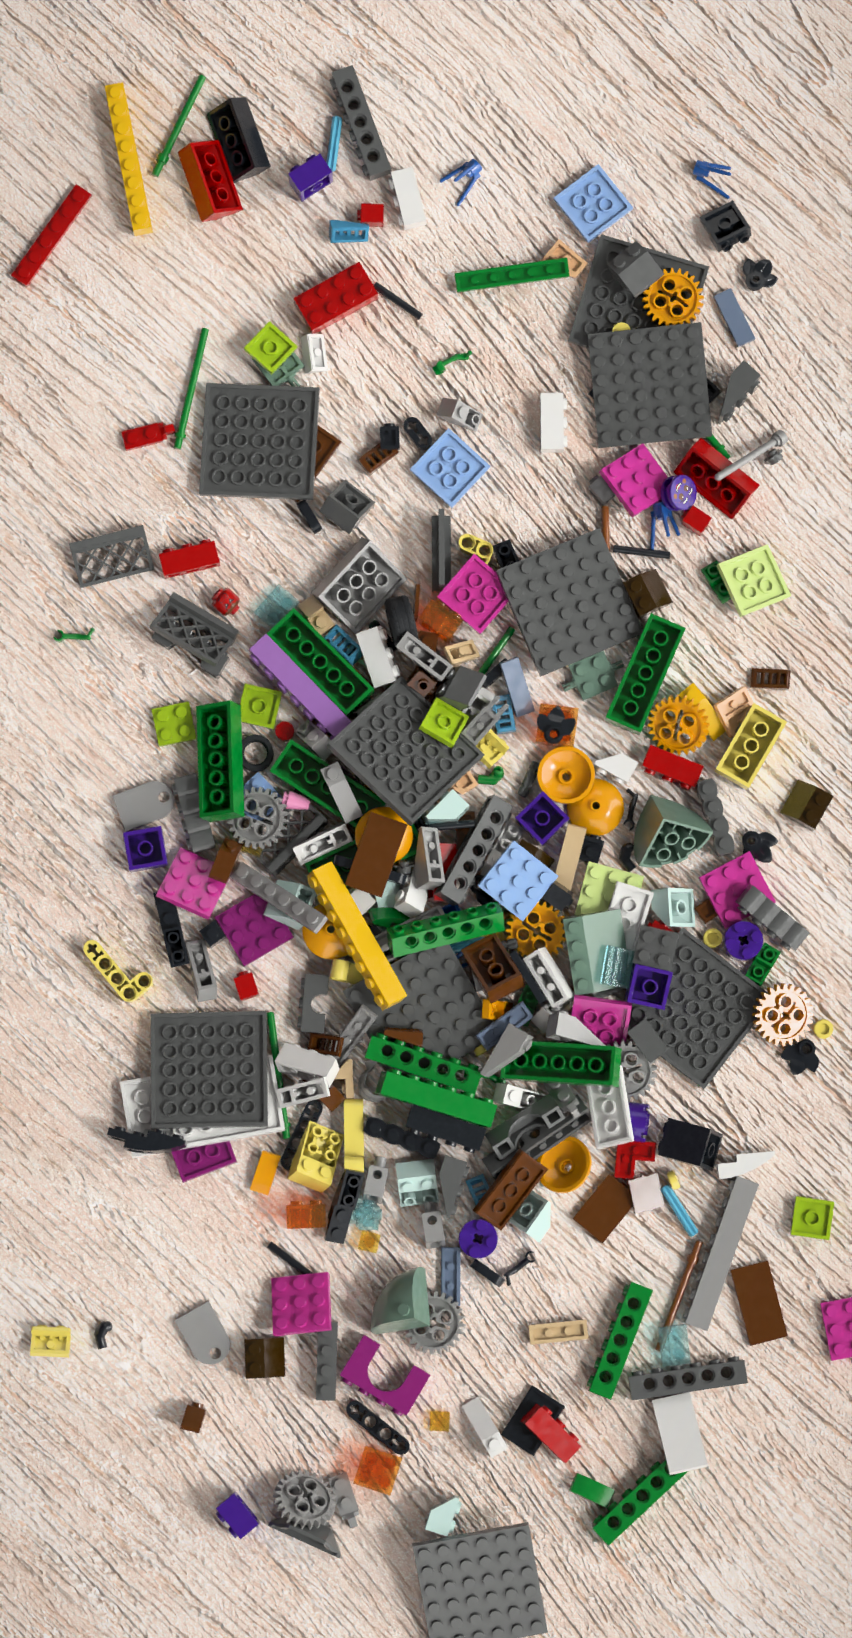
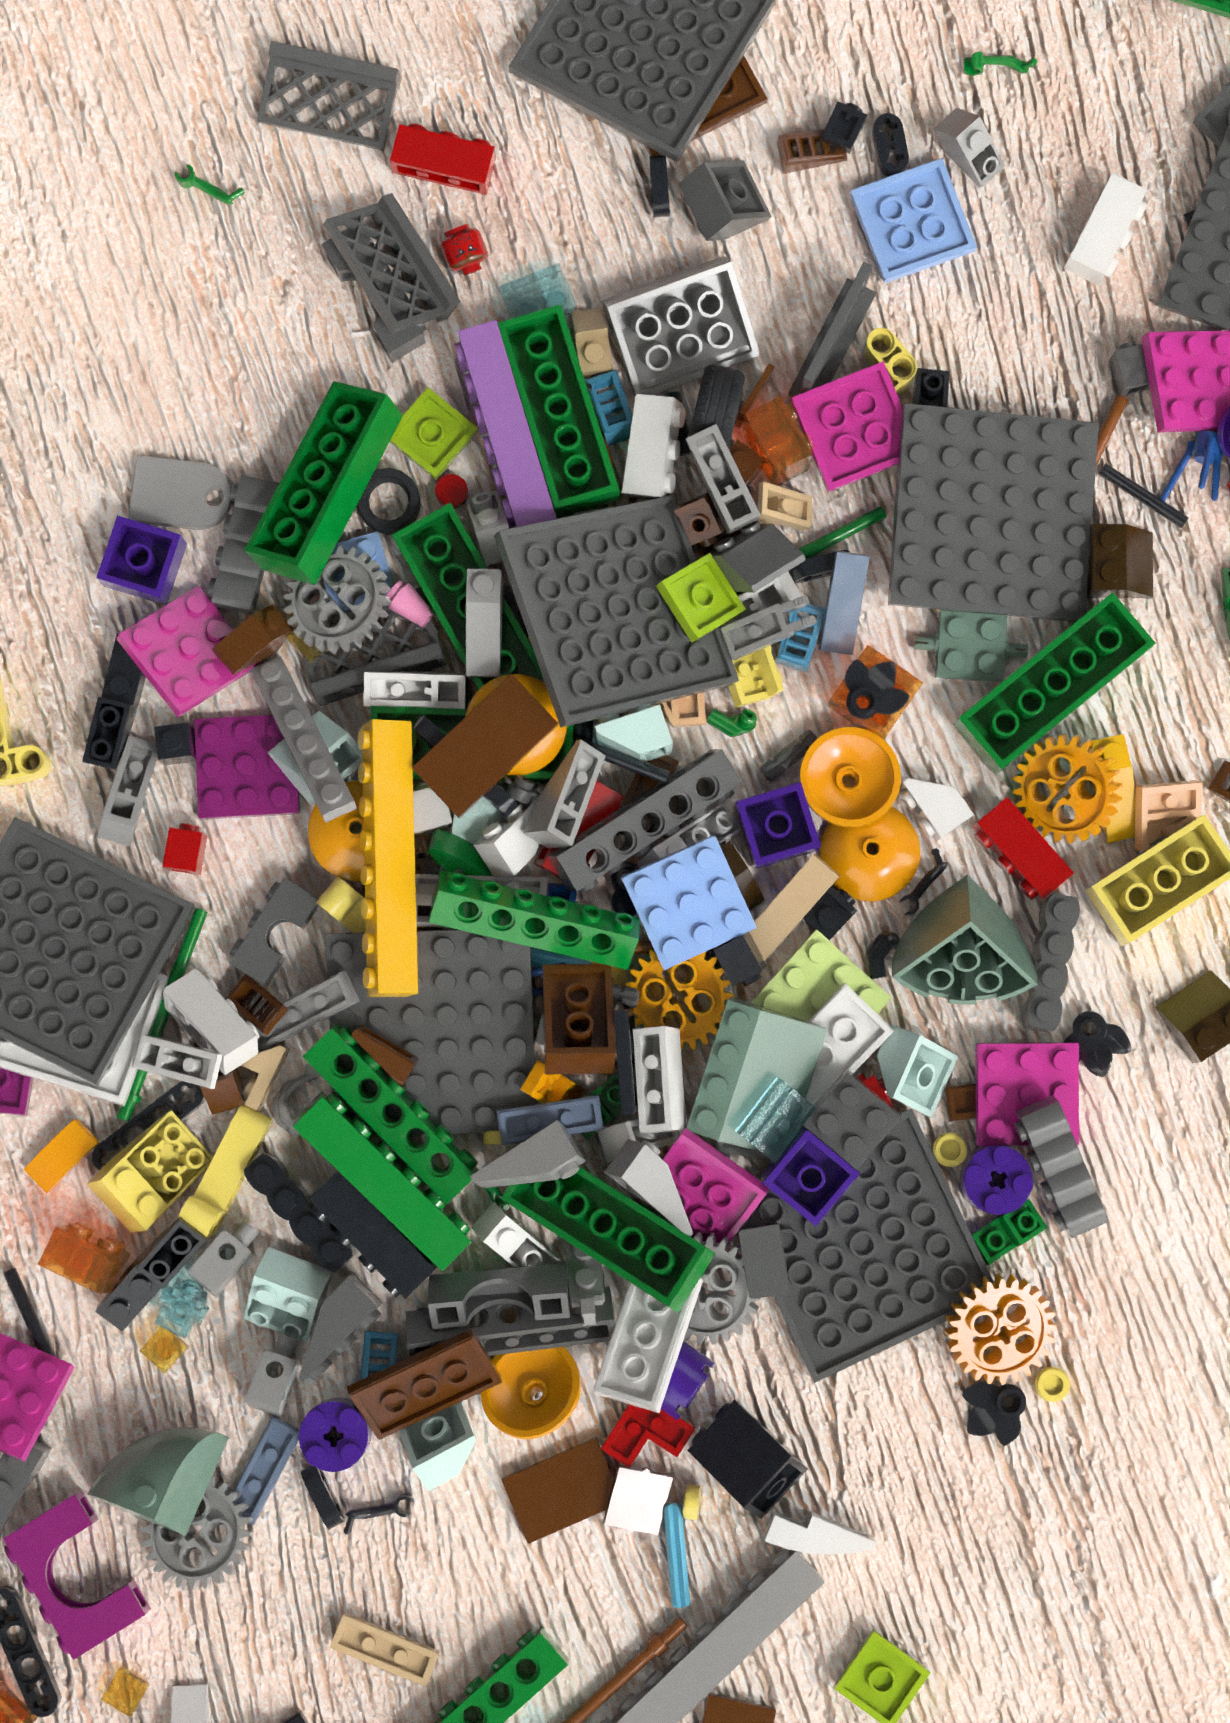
camera: 30 degrees right, 0 degrees up
(174, 724) = (288, 394): lime plate -> none

